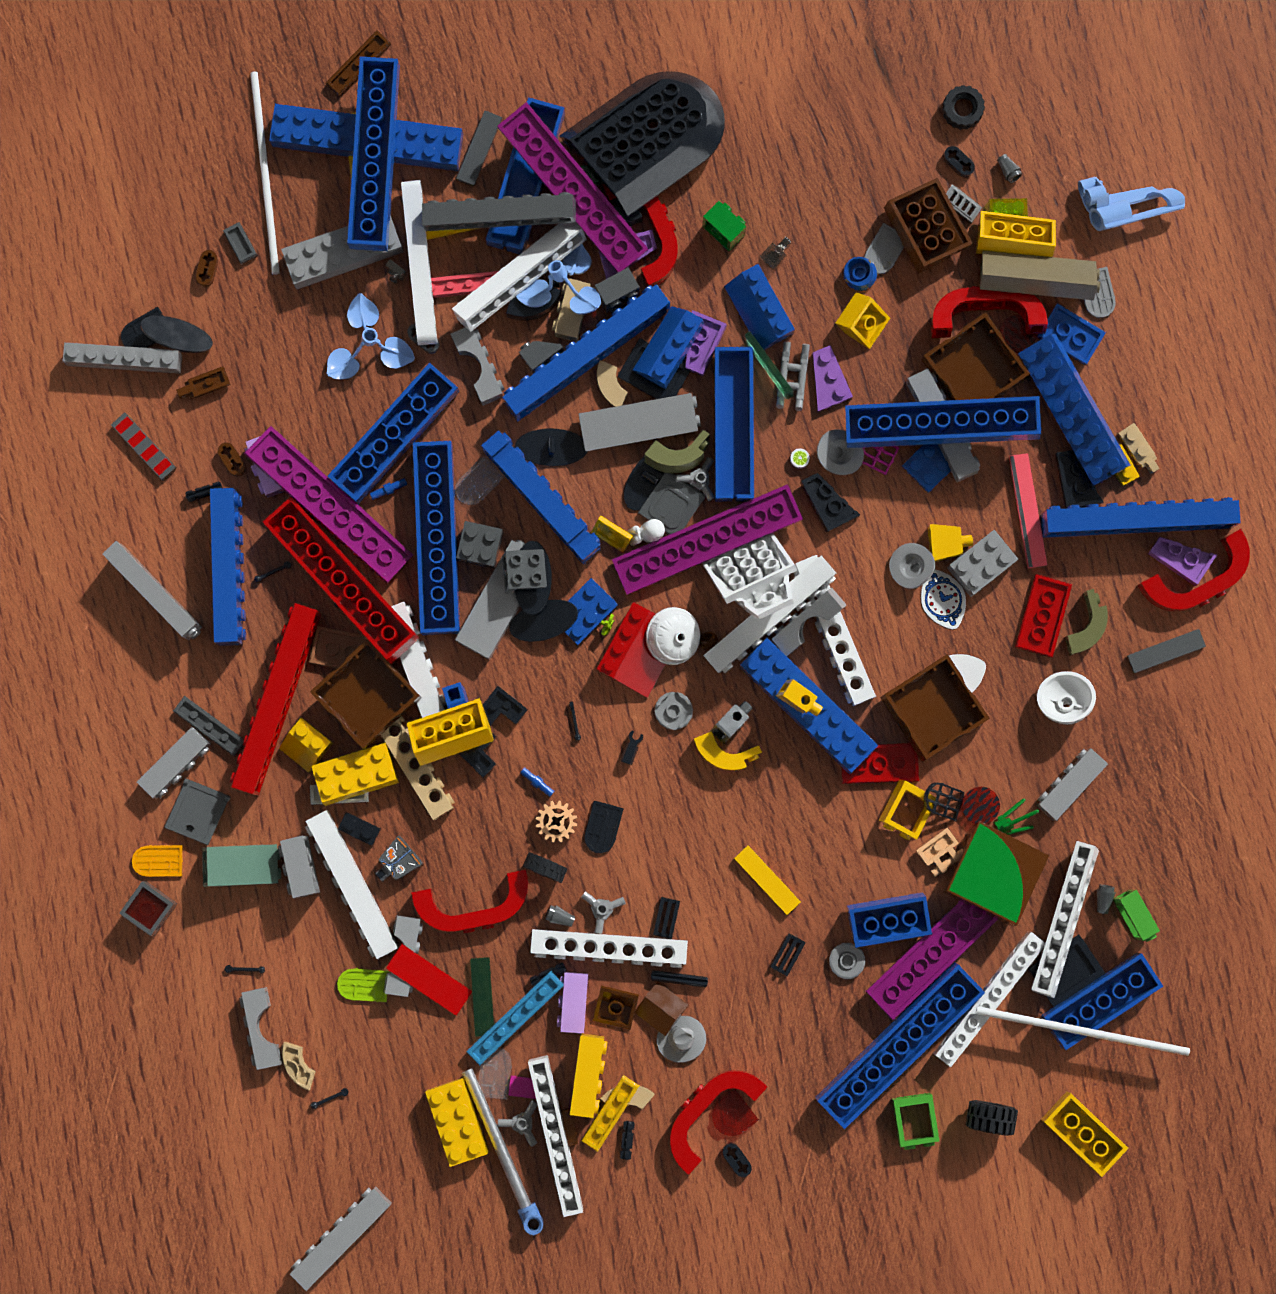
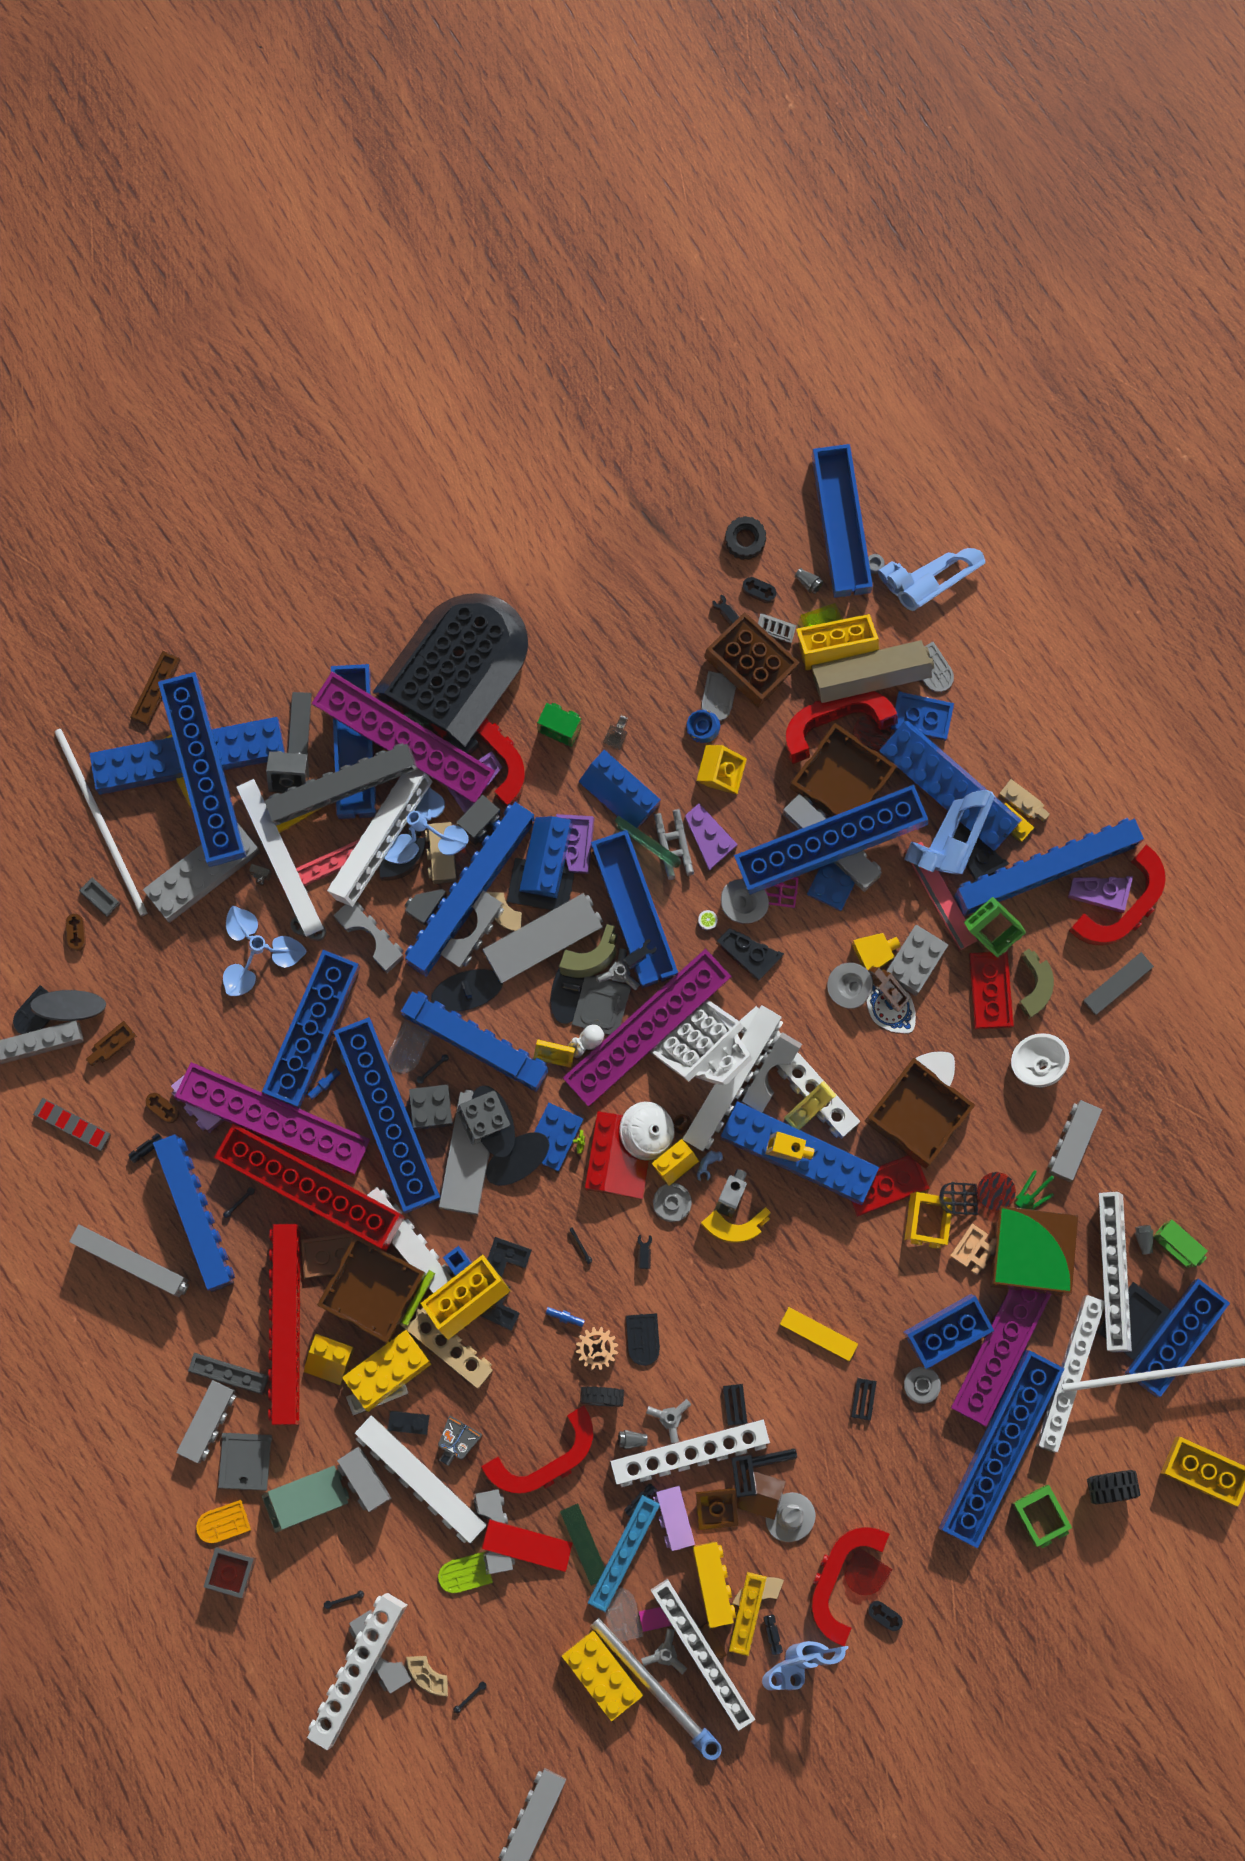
camera: 20 degrees left, 5 degrees down
(180, 1080) = (327, 1736): none -> white brick
(406, 717) = (418, 1297): none -> lime bar
(452, 182) = (286, 771): none -> dark grey brick
(479, 515) = (420, 1079): none -> black hinge
(595, 378) = (459, 950): none -> light grey arch
(638, 1175) = (796, 1663): none -> light blue panel
(648, 1002) = (746, 1493): none -> black tile
(689, 674) = (675, 1162): none -> yellow brick
(722, 469) = (639, 955): none -> black bar
(724, 681) = (709, 1158): none -> medium blue piece
(834, 665) = (810, 1106): none -> light yellow tile
(920, 170) = (726, 610): none -> black bar
(948, 581) = (889, 988): none -> reddish brown hinge
(1047, 471) = (946, 852): none -> light blue panel
(1061, 121) = (842, 520): none -> blue piece
(1061, 544) = (986, 914): none -> bright green window
(1077, 173) = (876, 562): none -> light grey tile

